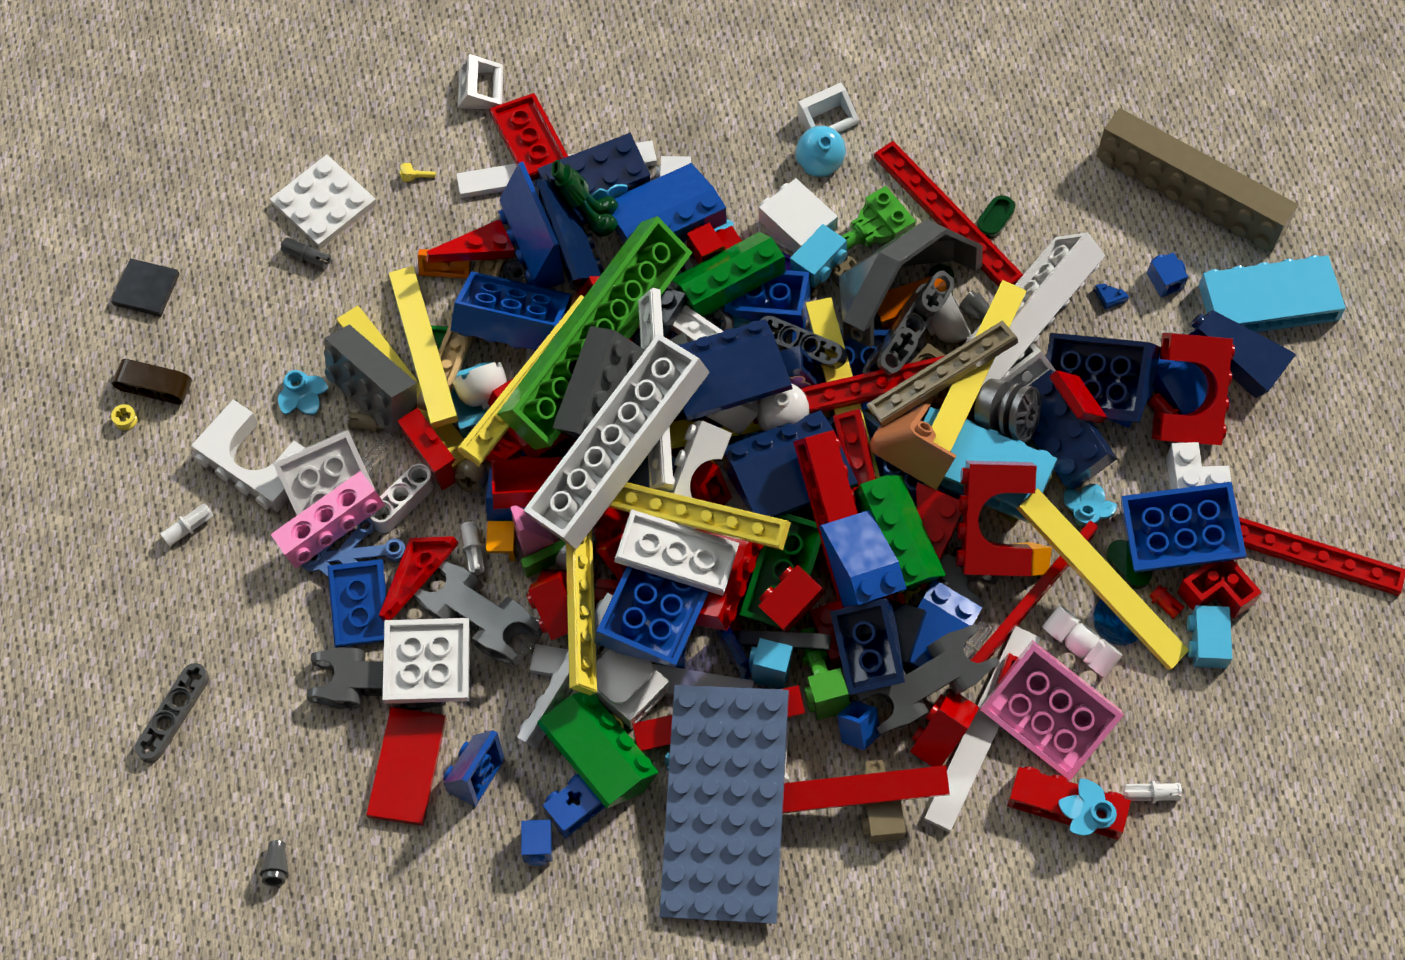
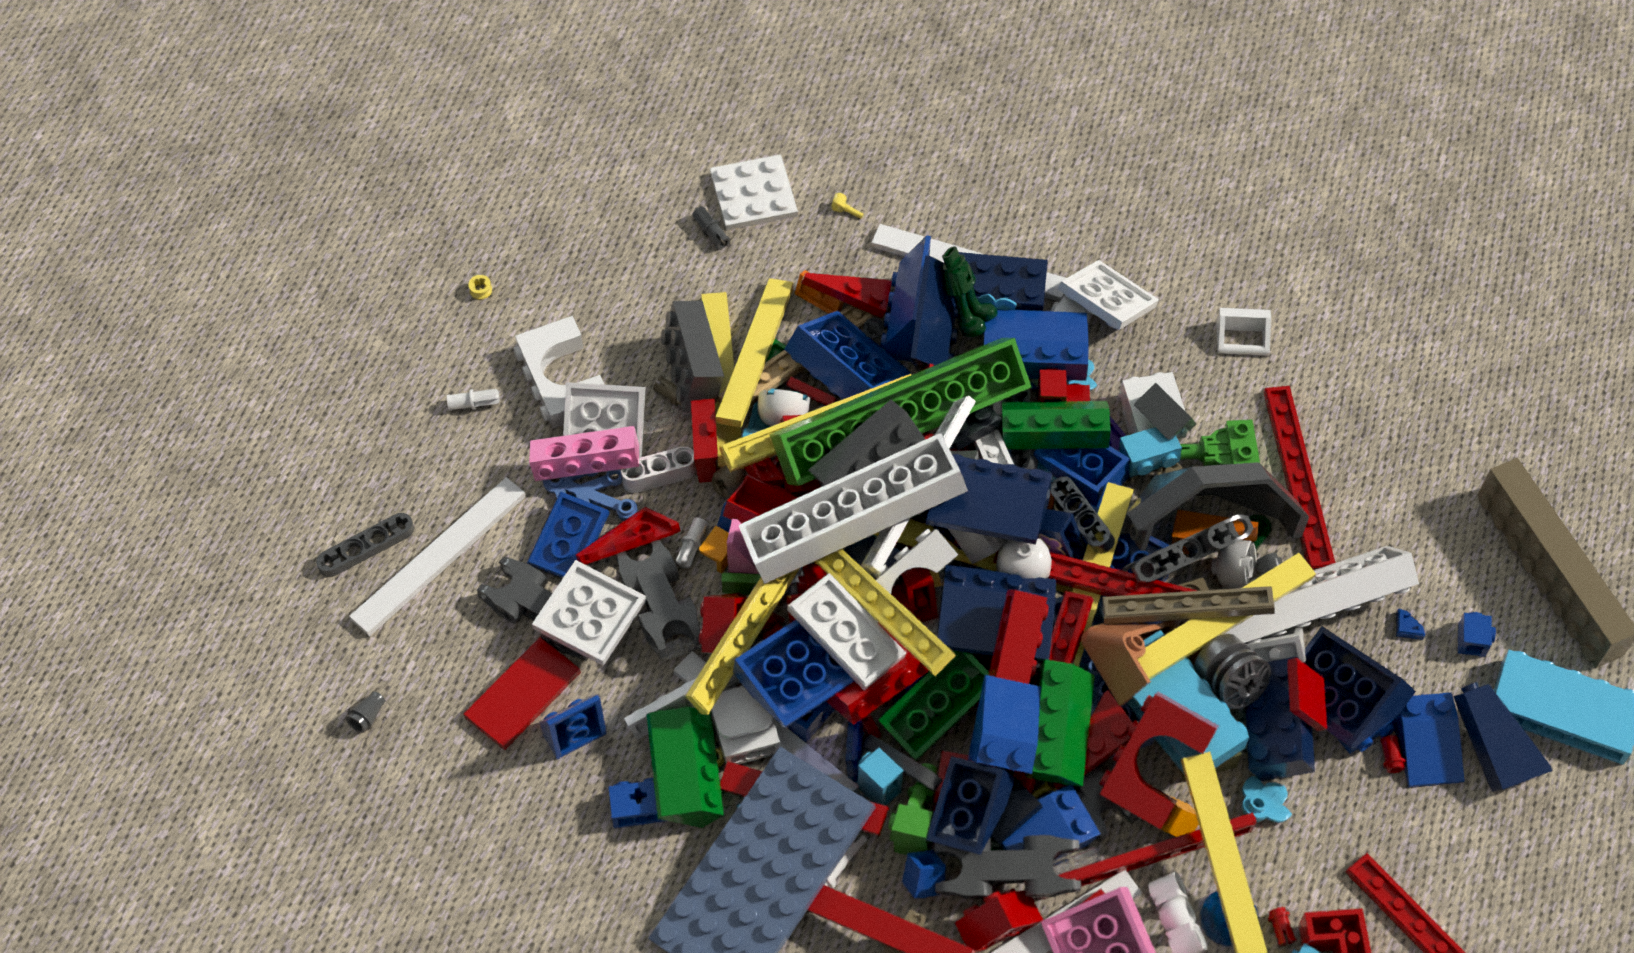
camera: 30 degrees right, 5 degrees down
(145, 287) = (564, 191): black tile -> none
(152, 381) = (519, 269): dark brown beam -> none
(247, 687) = (437, 557): none -> white tile
(302, 396) = (633, 343): medium azure plate -> none
(467, 92) = (931, 166): white tile -> none
(496, 356) = (811, 392): none -> red tile
(528, 133) = (962, 219): red tile -> none
(536, 842) = (585, 815): blue brick -> none
(697, 138) = (1108, 295): none -> white plate
(791, 597) = (925, 727): red brick -> none
(814, 216) = (1164, 412): none -> dark grey panel
(820, 151) = (1215, 361): medium azure cylinder -> none
(996, 216) = (1344, 500): dark green tile -> none
(1119, 558) = (1268, 874): dark green tile -> none
(1182, 527) = (1335, 865): blue slope -> none
(1187, 470) = (1380, 836): white brick -> none
(1214, 358) = (1422, 786): red arch -> none

